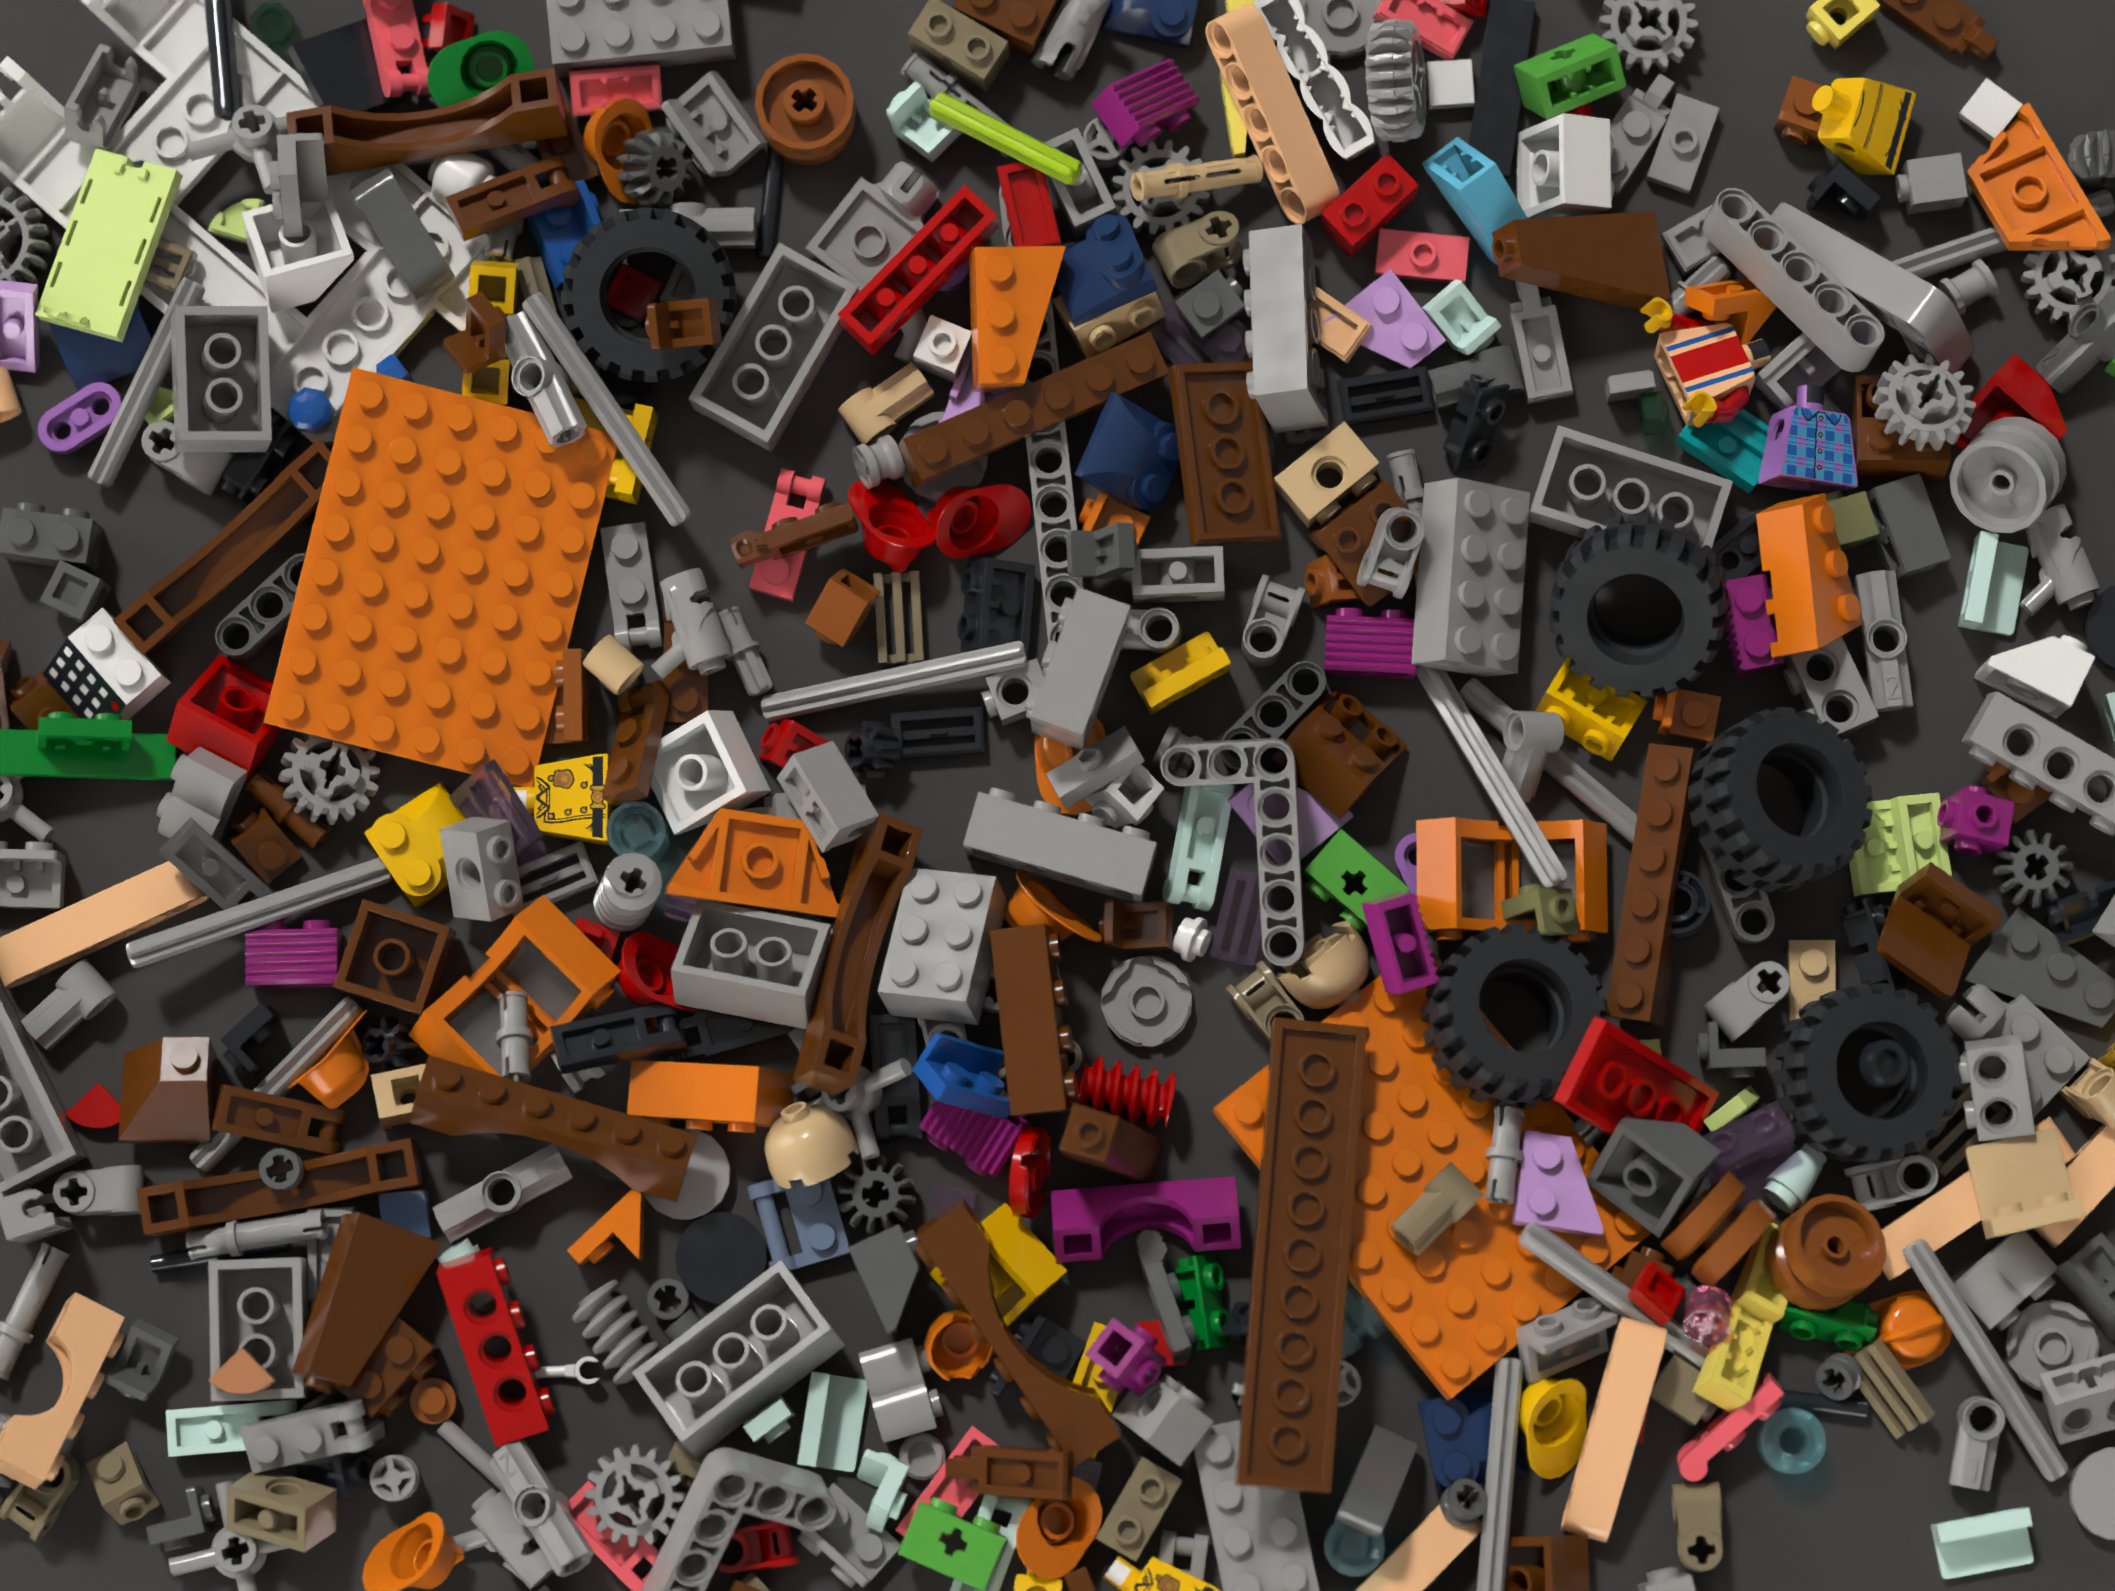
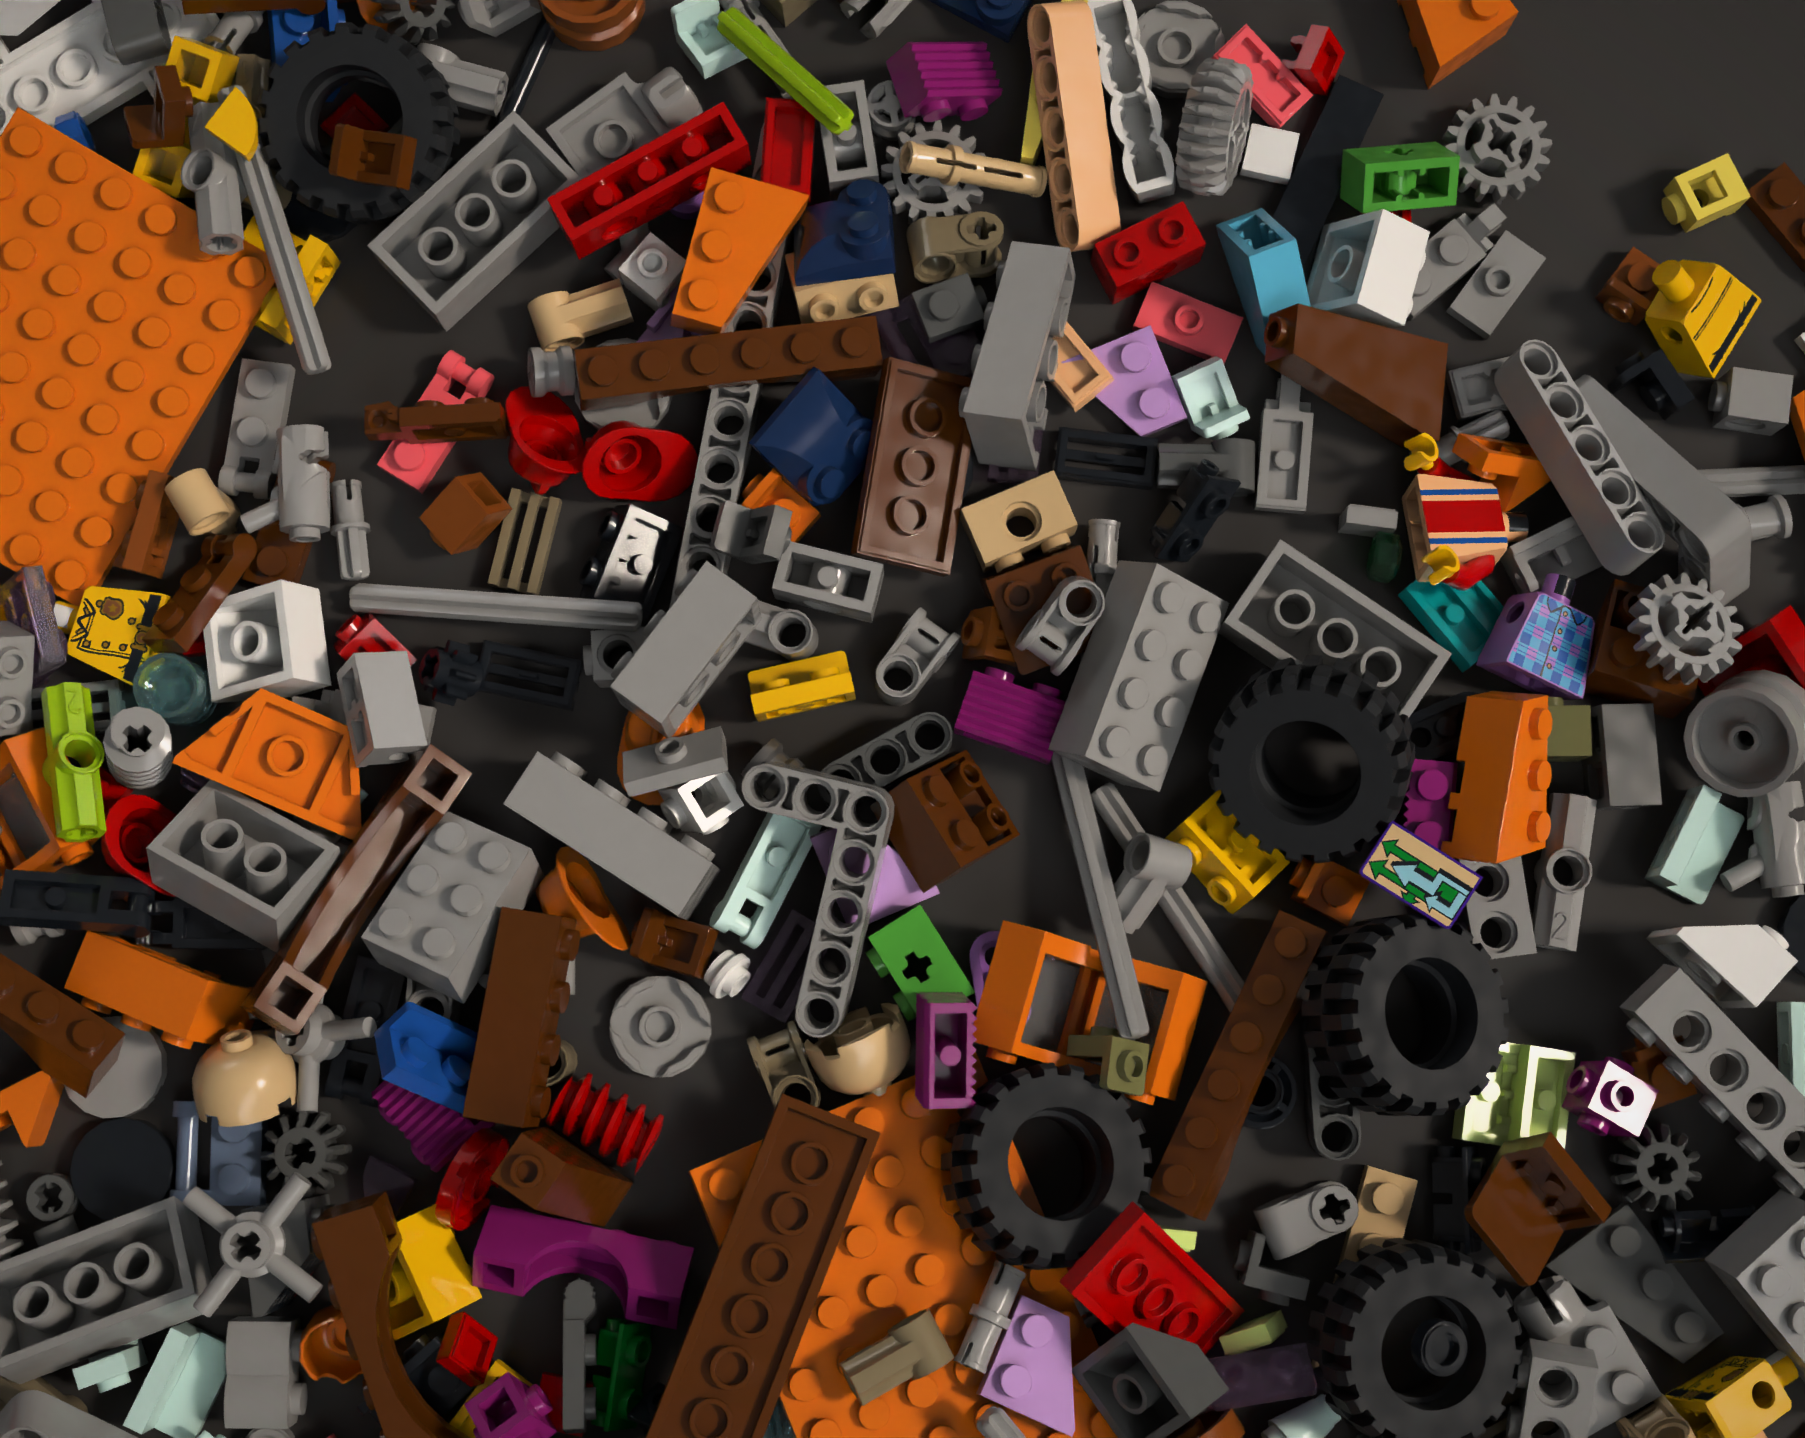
camera: 10 degrees right, 0 degrees up
(551, 328) = (236, 124): none -> yellow tile
(579, 918) = (74, 790): none -> lime piece
(864, 1251) = (232, 1244): none -> light grey bar
(1068, 1317) = (467, 1349): none -> red tile
(1757, 677) = (1420, 875): none -> panel

